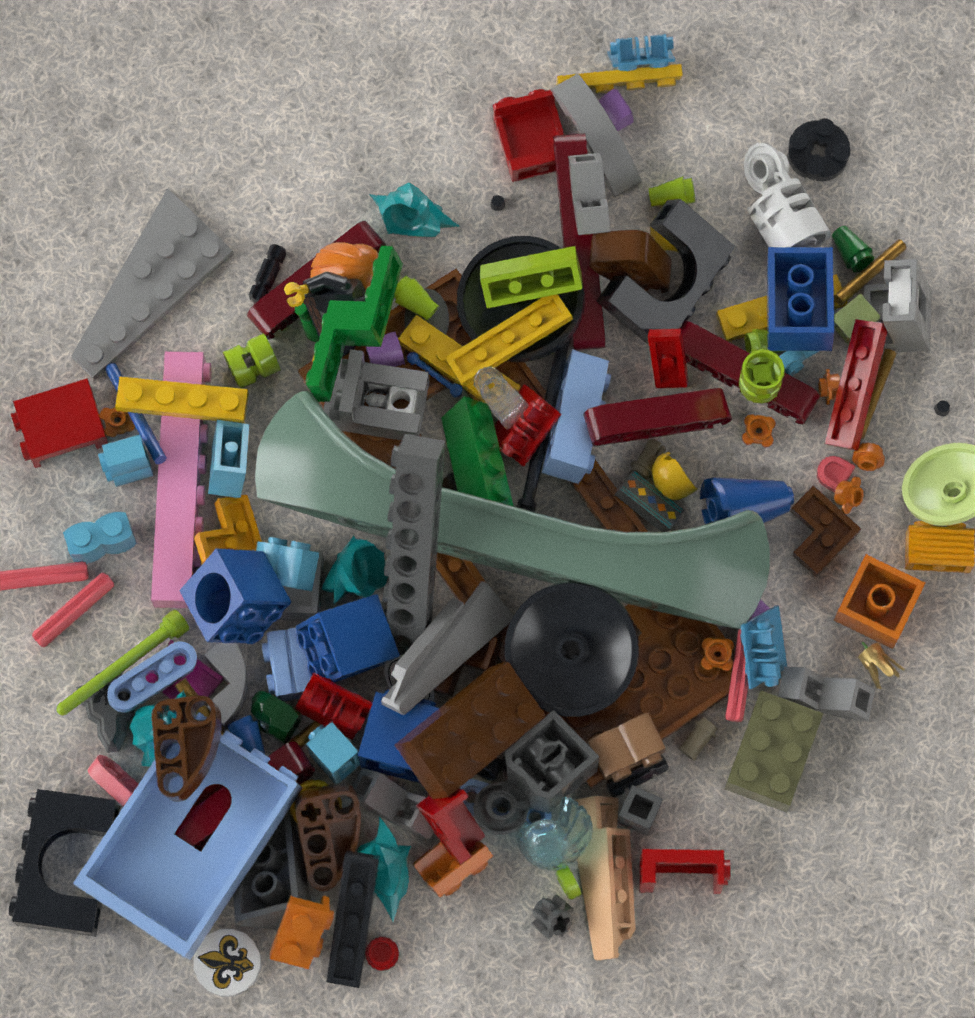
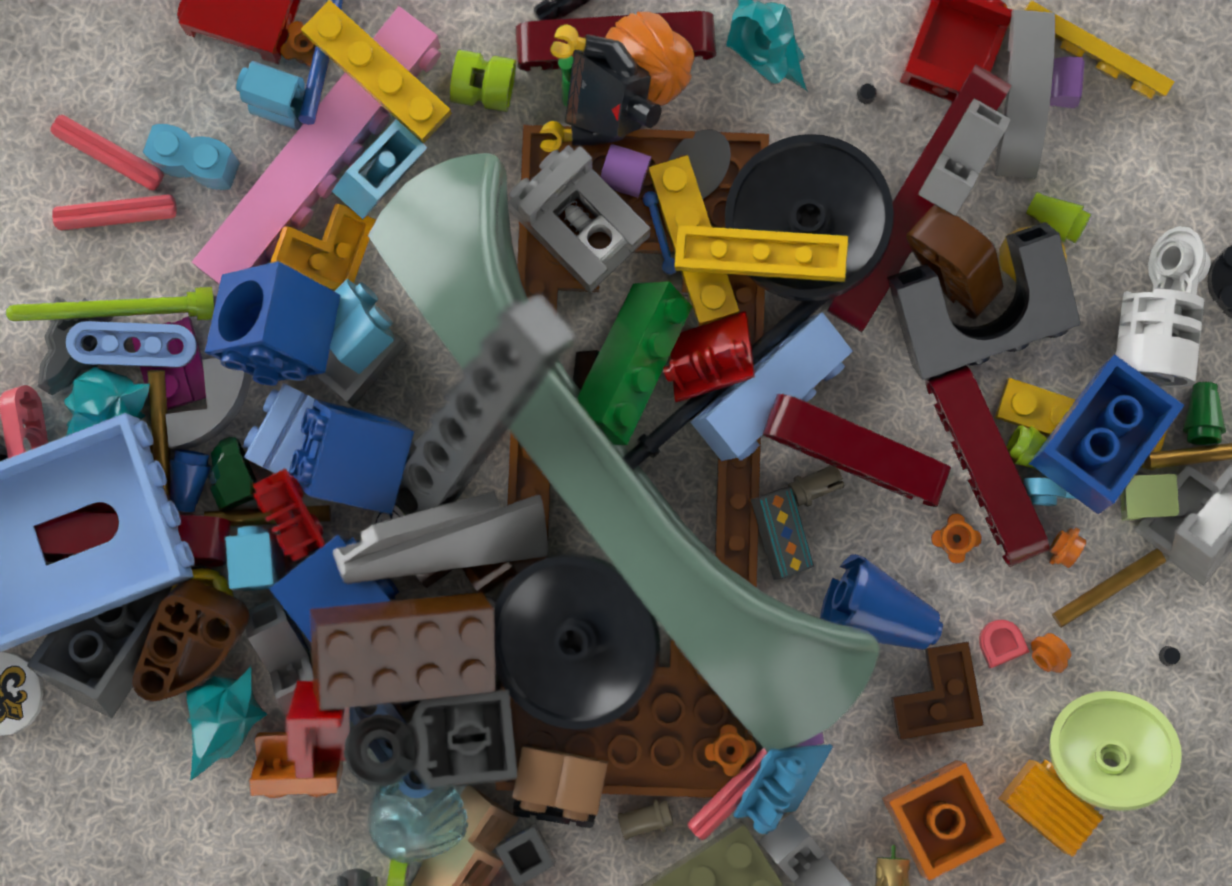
camera: 30 degrees right, 10 degrees up
(196, 739) = (105, 452): reddish brown beam -> none
(301, 931) = (85, 726): orange bracket -> none
(353, 919) = (149, 749): black tile -> none
(354, 324) = (603, 121): green bracket -> none
(356, 570) = (419, 383): teal hair -> none
(382, 953) = (160, 801): red plate -> none
(414, 298) = (698, 134): lime cone -> none
(502, 398) = (706, 314): clear piece -> none
(531, 277) = (832, 204): lime brick -> none
(657, 56) = (1154, 53): dark azure hinge -> none
(668, 358) = (917, 394): red plate -> none
(671, 478) = (822, 525): yellow hair -> none
(761, 376) = (1000, 489): lime wheel -> none
(849, 494) = (999, 678): orange plate -> none
(856, 385) = (1096, 570): red plate -> none

